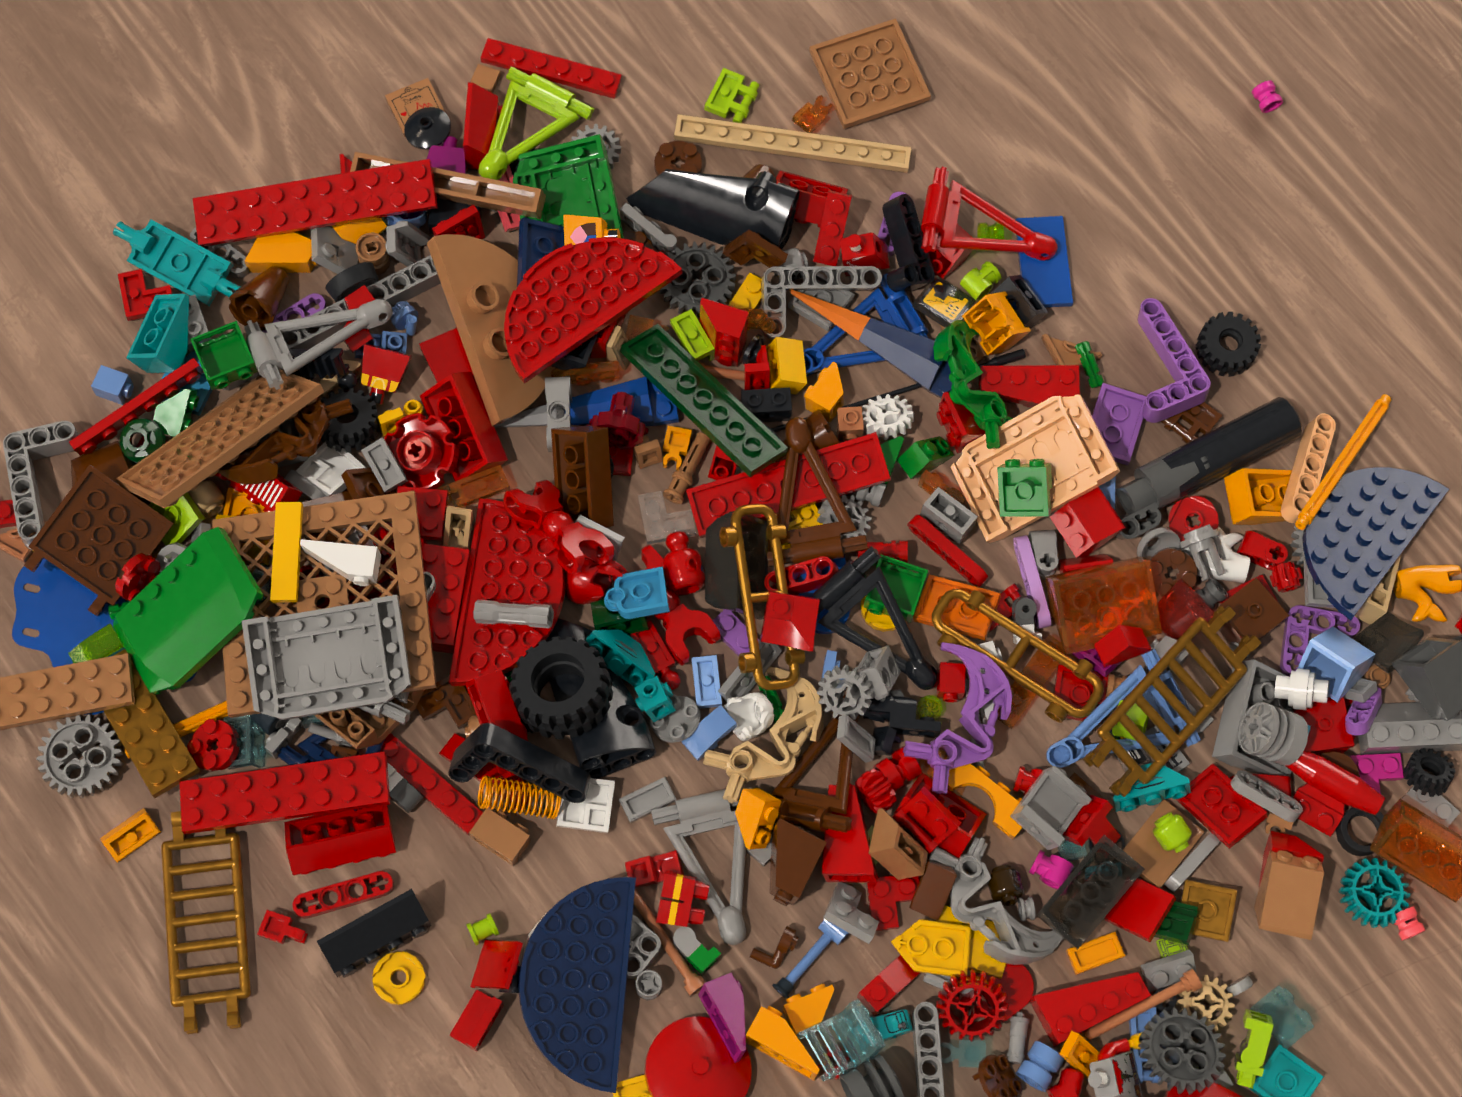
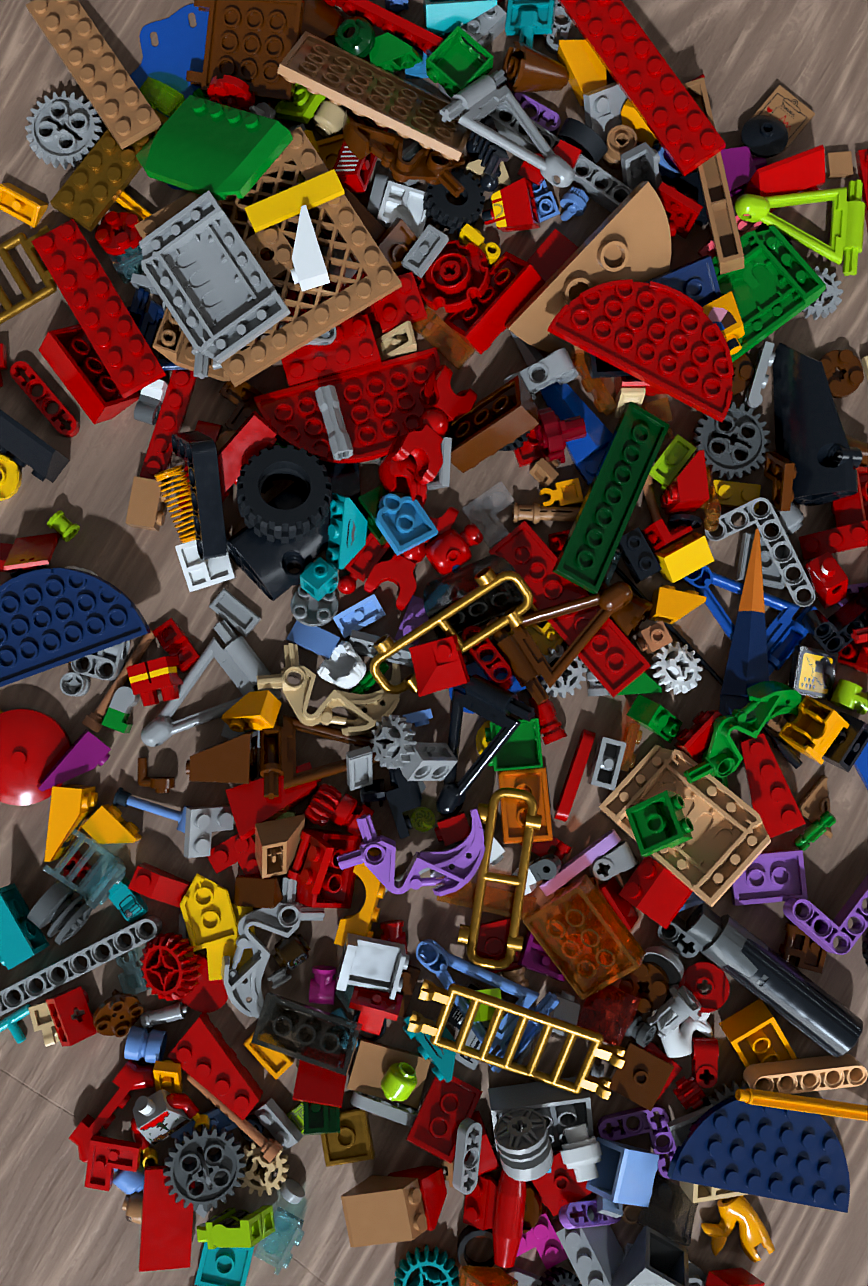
camera: 70 degrees right, 15 degrees up
(1121, 644) = (551, 970): red slope -> none

